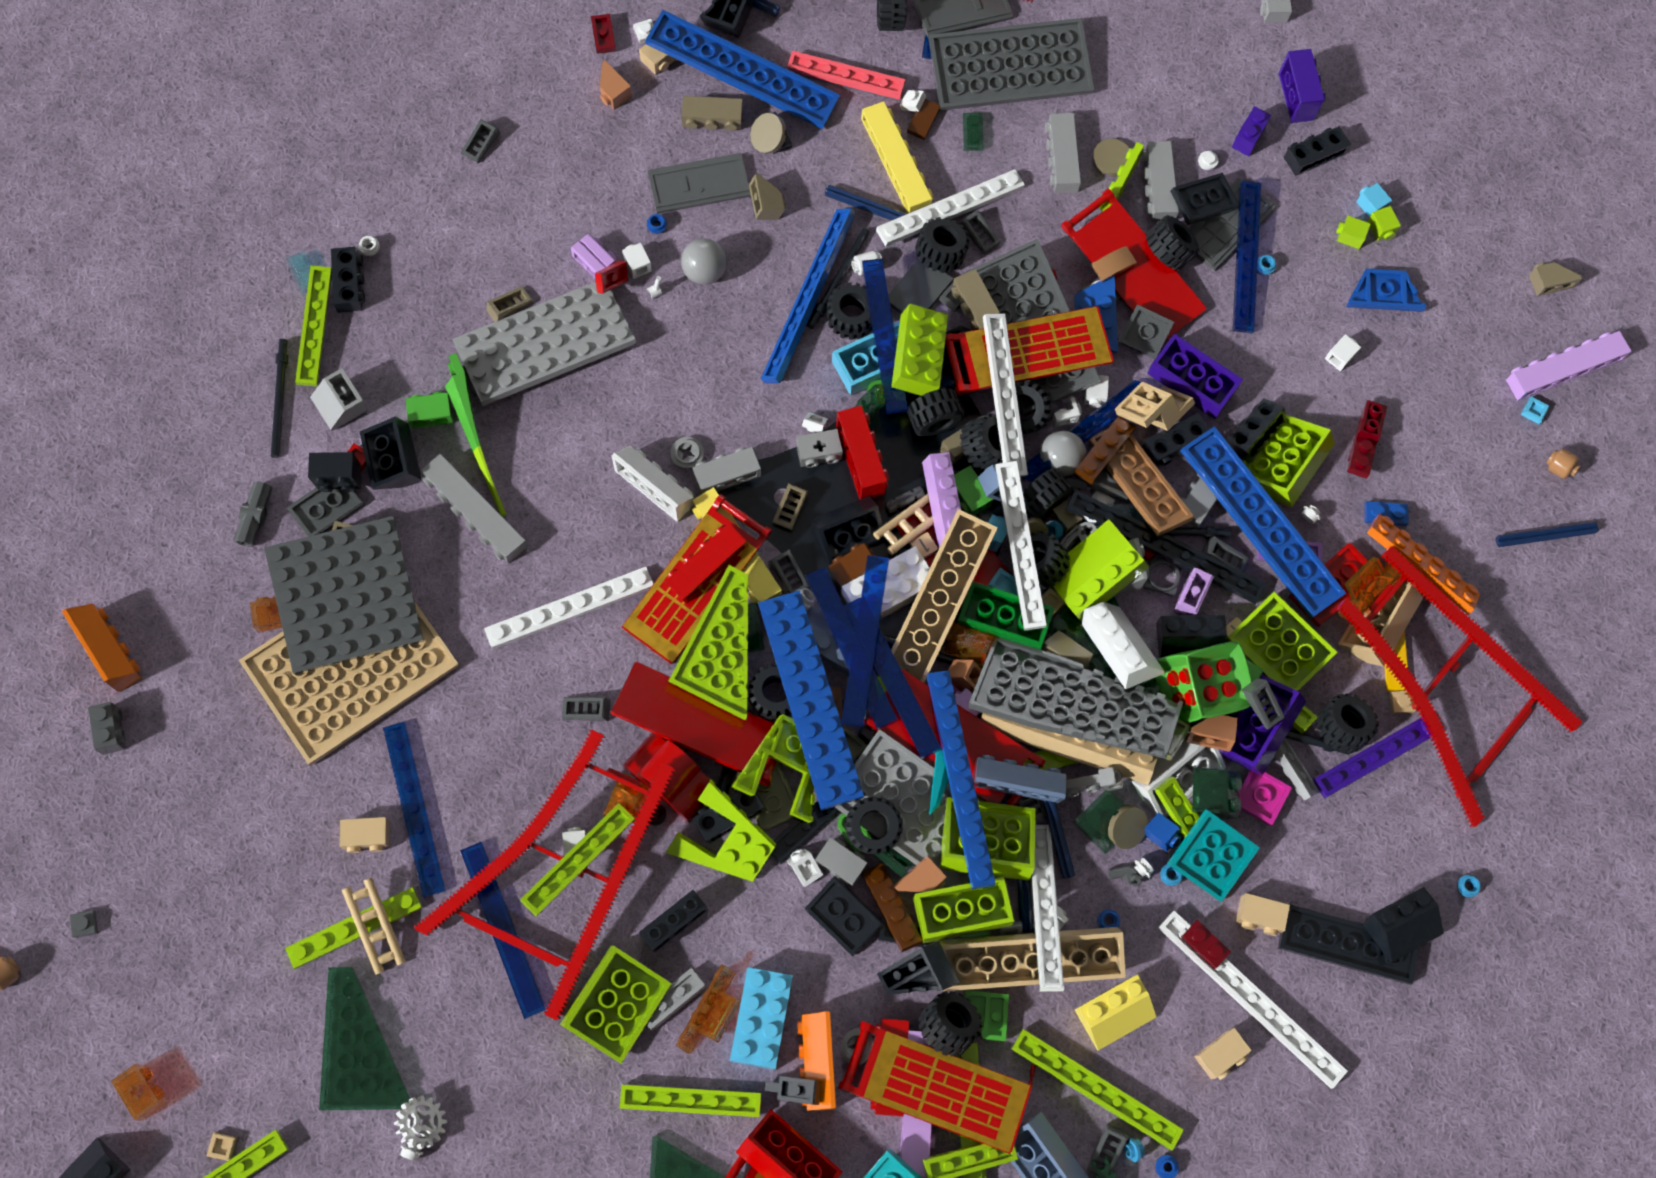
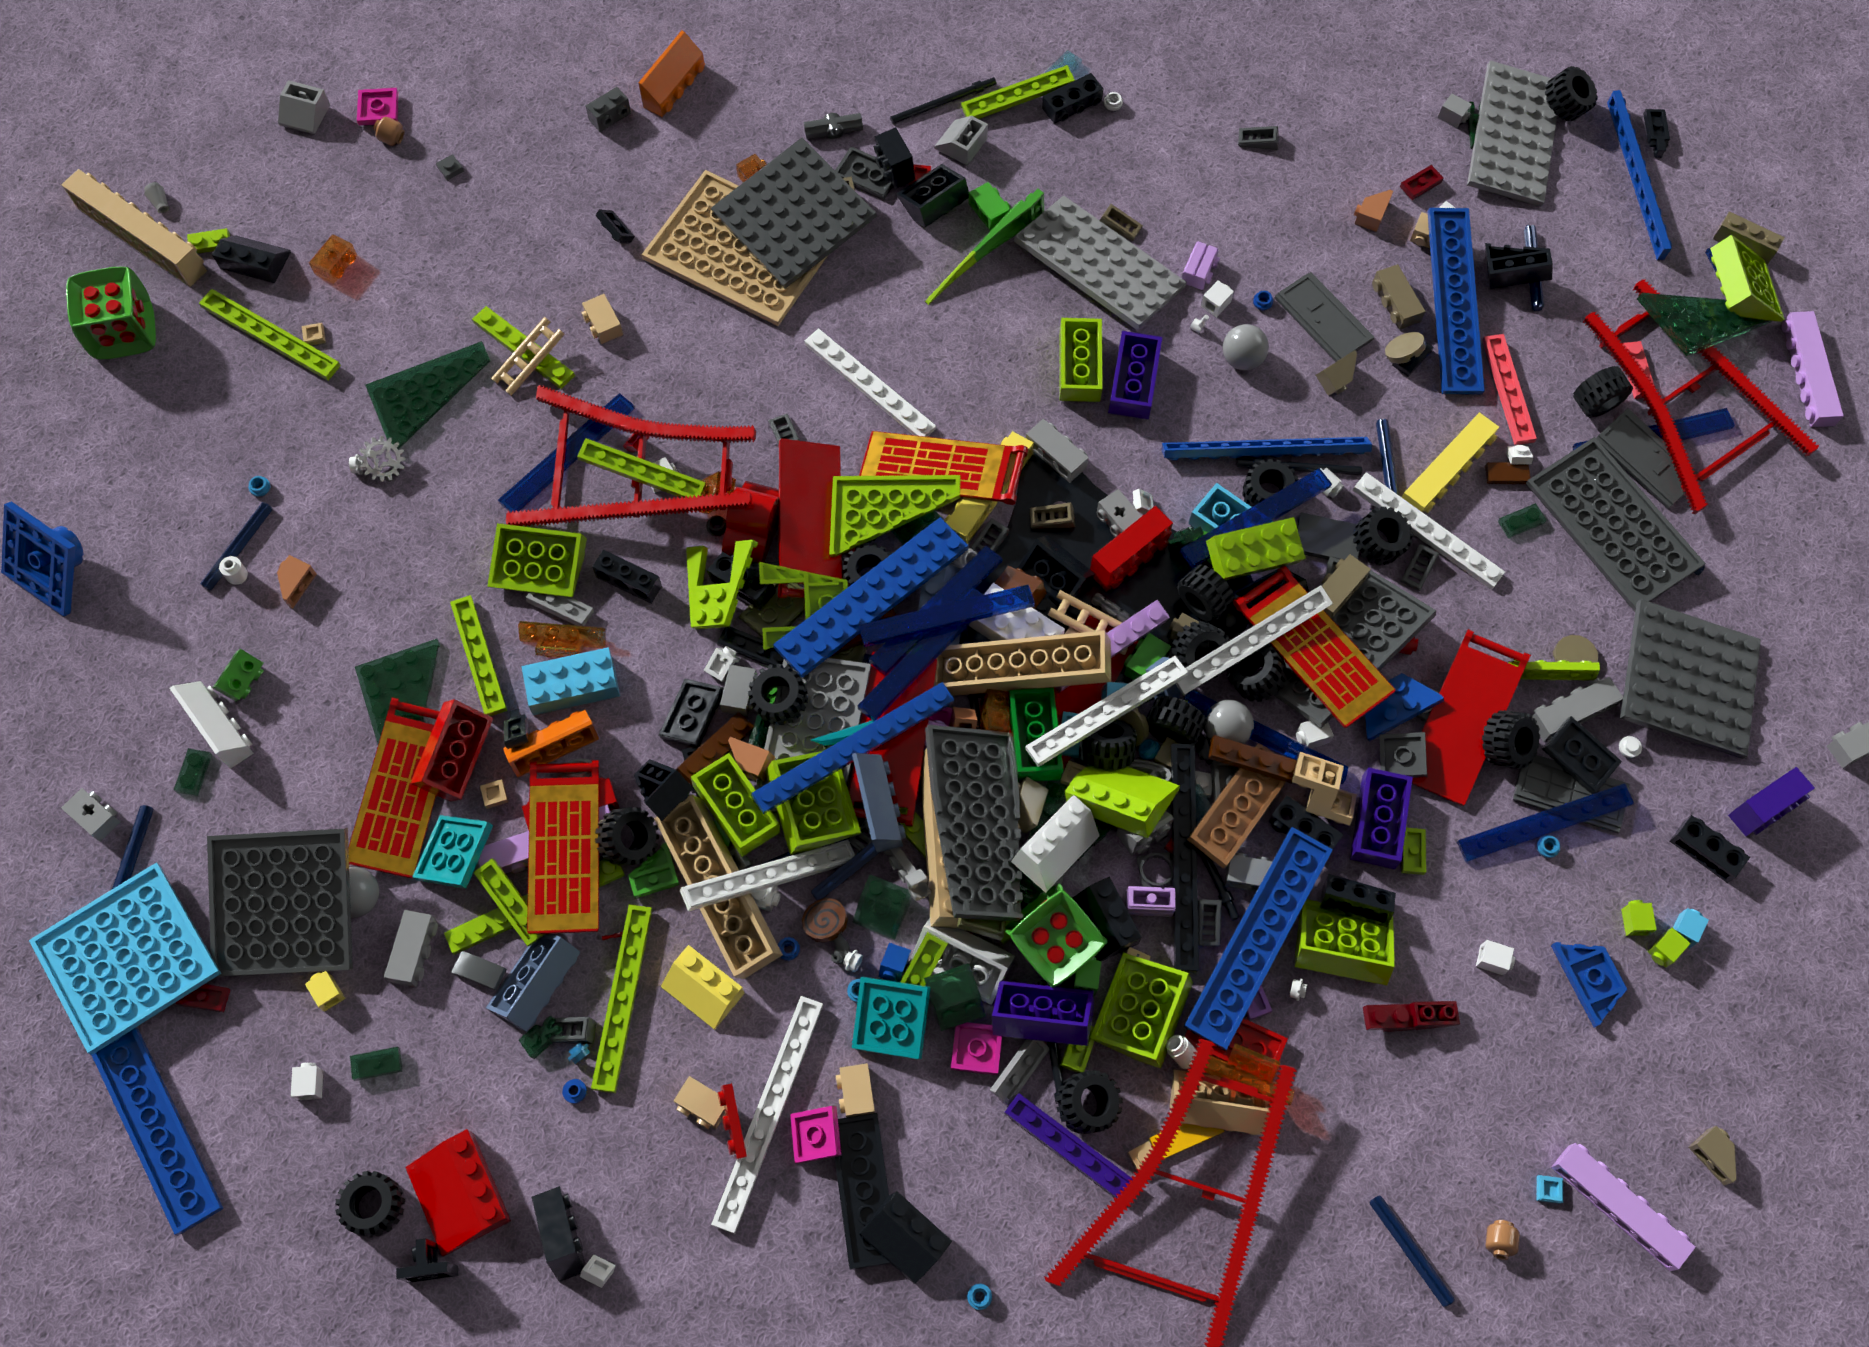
camera: 70 degrees right, 5 degrees down
(256, 778) = (615, 226): none -> black plate
(414, 810) = (639, 347): clear blue tile -> none
(474, 509) = (918, 276): light grey brick -> none
(528, 858) = (632, 443): none -> red plate
(611, 276) = (1187, 282): red plate -> none
(643, 406) = (1080, 359): none -> lime brick
(652, 482) = (1015, 394): white slope -> none
(683, 367) = (1135, 375): none -> dark purple brick
(684, 444) = (1066, 409): light grey gear -> none
(707, 562) = (952, 460): red brick -> none
(845, 1137) = (494, 794): none -> tan plate
(1063, 152) = (1549, 607): light grey brick -> none
(1067, 417) = (1272, 716): white bracket -> none
(1097, 876) = (824, 920): none -> reddish brown tile
(1113, 263) = (1454, 692): medium nougat slope -> none
(1127, 827) = (883, 927): dark tan tile -> none
(1172, 84) = (1691, 679): none -> dark grey plate
(1205, 944) = (801, 1044): dark red plate -> none
(1214, 733) = (1009, 964): nougat slope -> none
(1233, 364) = (1414, 852): none -> lime plate
(1251, 131) = (1688, 774): dark purple brick -> none
(1257, 690) = (1068, 976): dark grey slope -> none
(1257, 1031) = (731, 1121): none -> red plate
(1289, 964) = (815, 1134): none -> dark pink plate
(1331, 629) = (1180, 1050): none -> white brick
(1396, 512) = (1342, 1068): blue plate -> none
(1447, 580) = (1302, 1121): orange plate -> none

